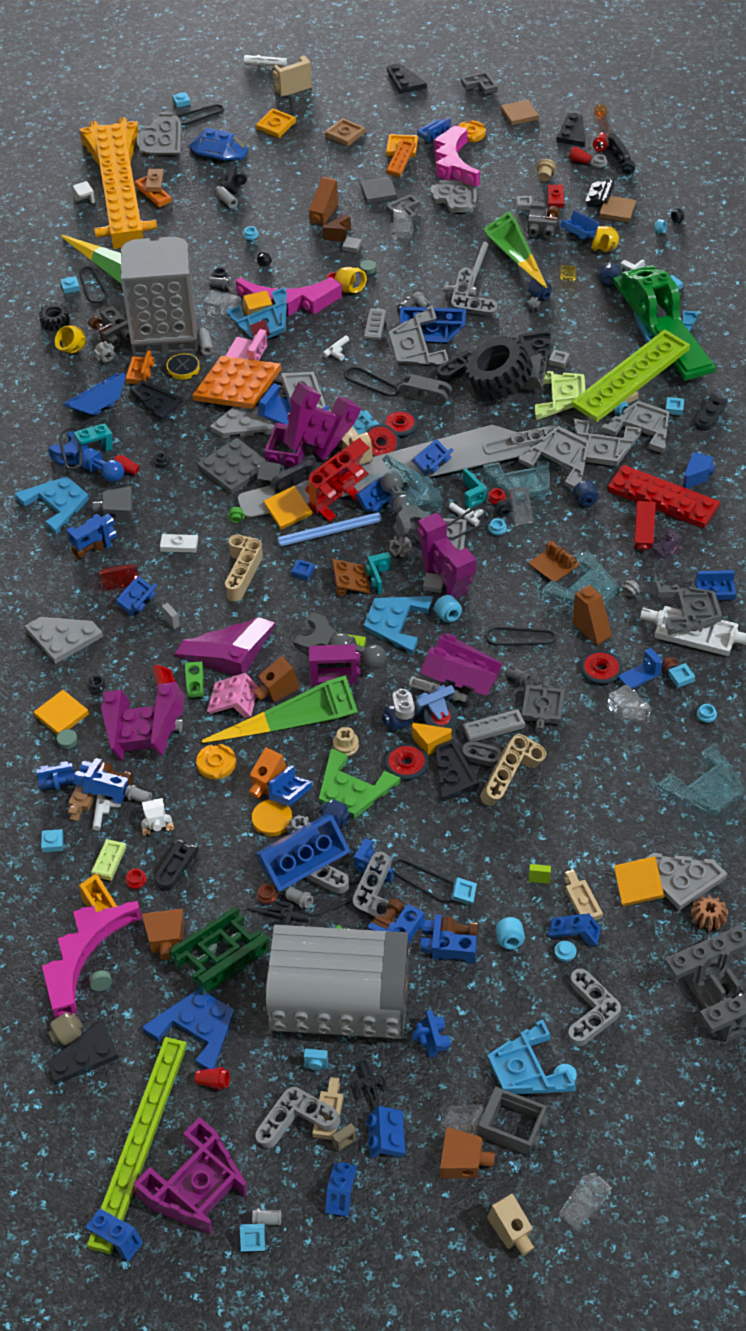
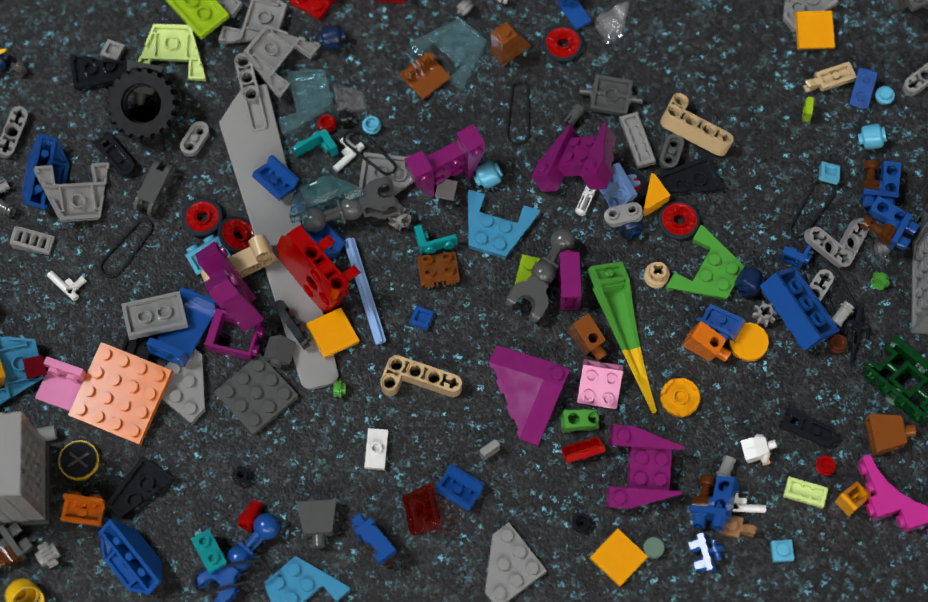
camera: 90 degrees left, 20 degrees up
(474, 412) = (193, 139): none -> light grey plate

